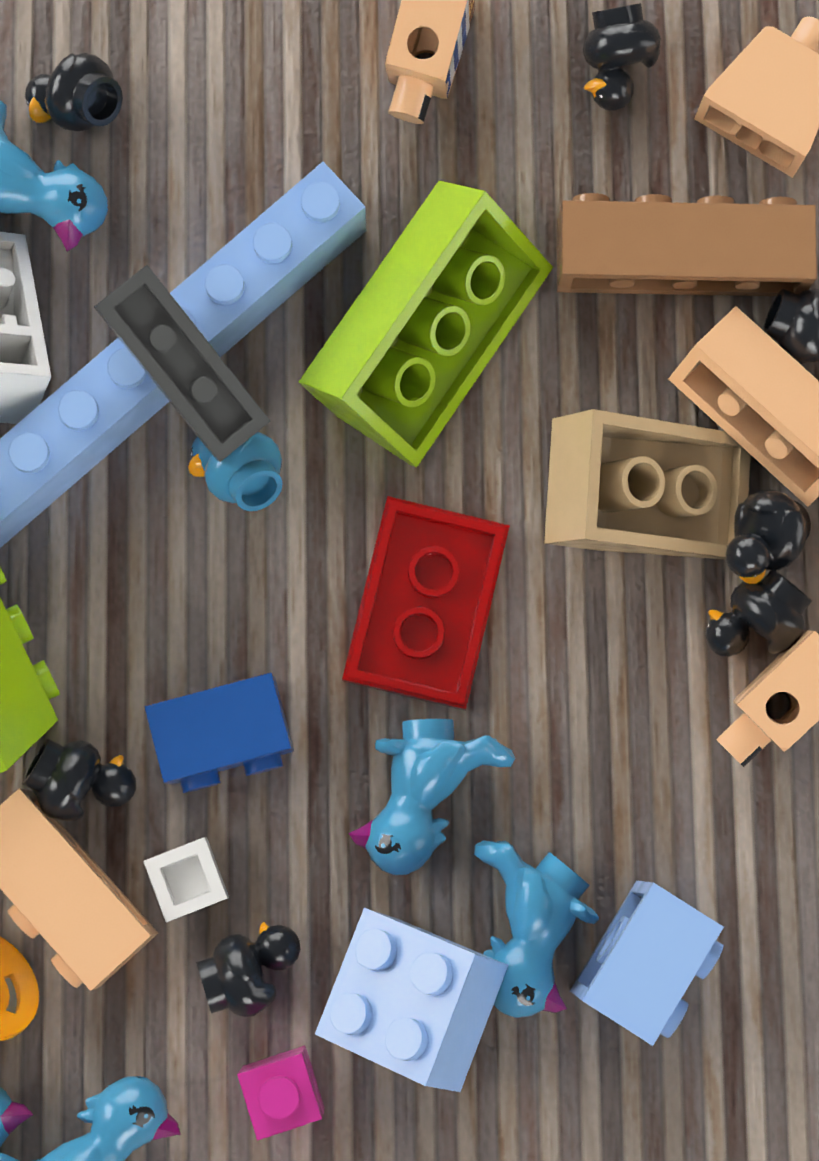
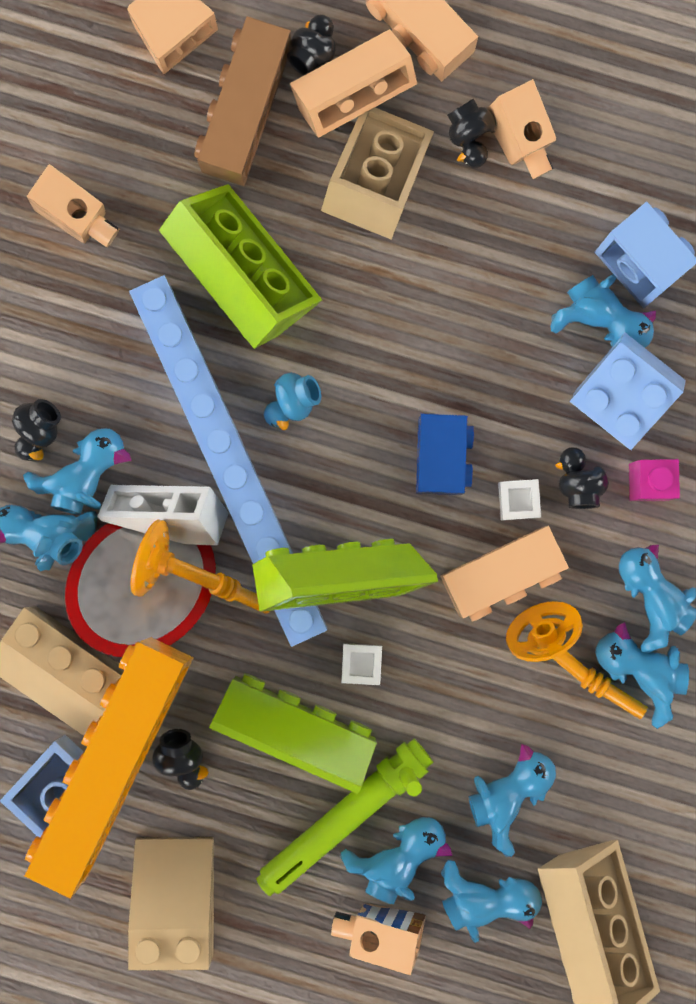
camera: 75 degrees left, 5 degrees up
(68, 772) = (441, 545): black animal -> none
(182, 363) = (228, 406): dark grey plate -> none
(423, 773) = (502, 348): dark azure animal -> none
(426, 603) = (402, 318): red tile -> none
(618, 41) = (105, 99): black animal -> none
(767, 534) = (427, 111): black animal -> none

